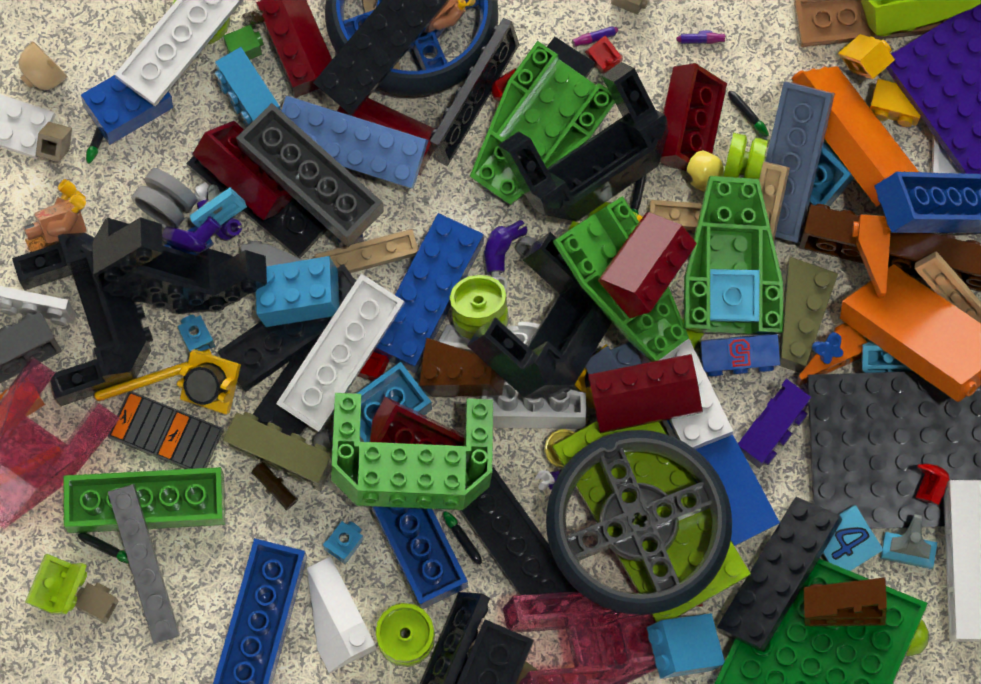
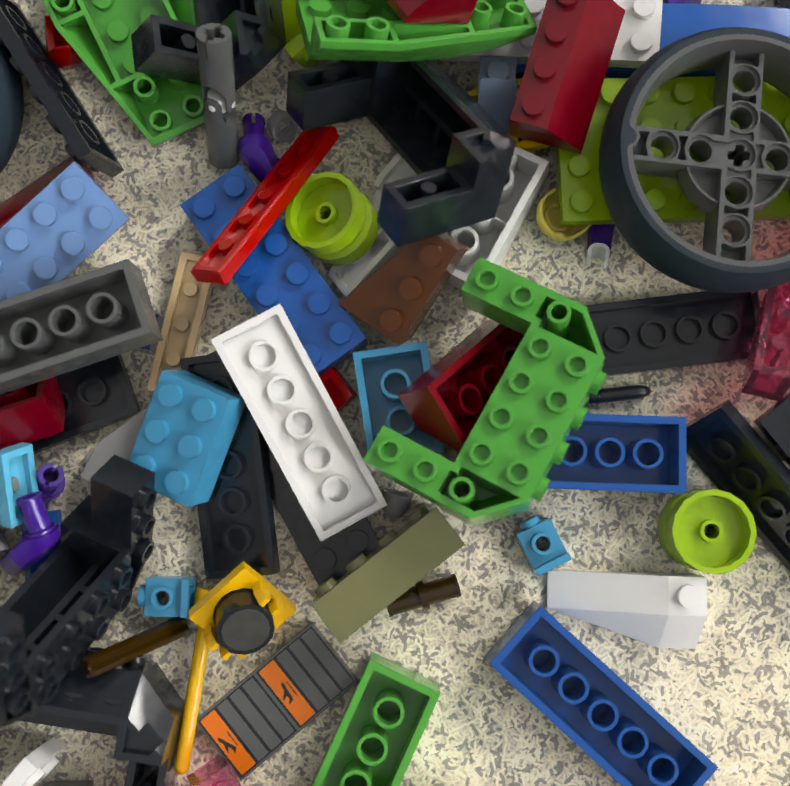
camera: 60 degrees left, 10 degrees up
(159, 330) = (134, 647): none -> dark brown axle
(463, 262) = (264, 206): none -> red tile
(512, 200) = (218, 94): none -> dark grey piece

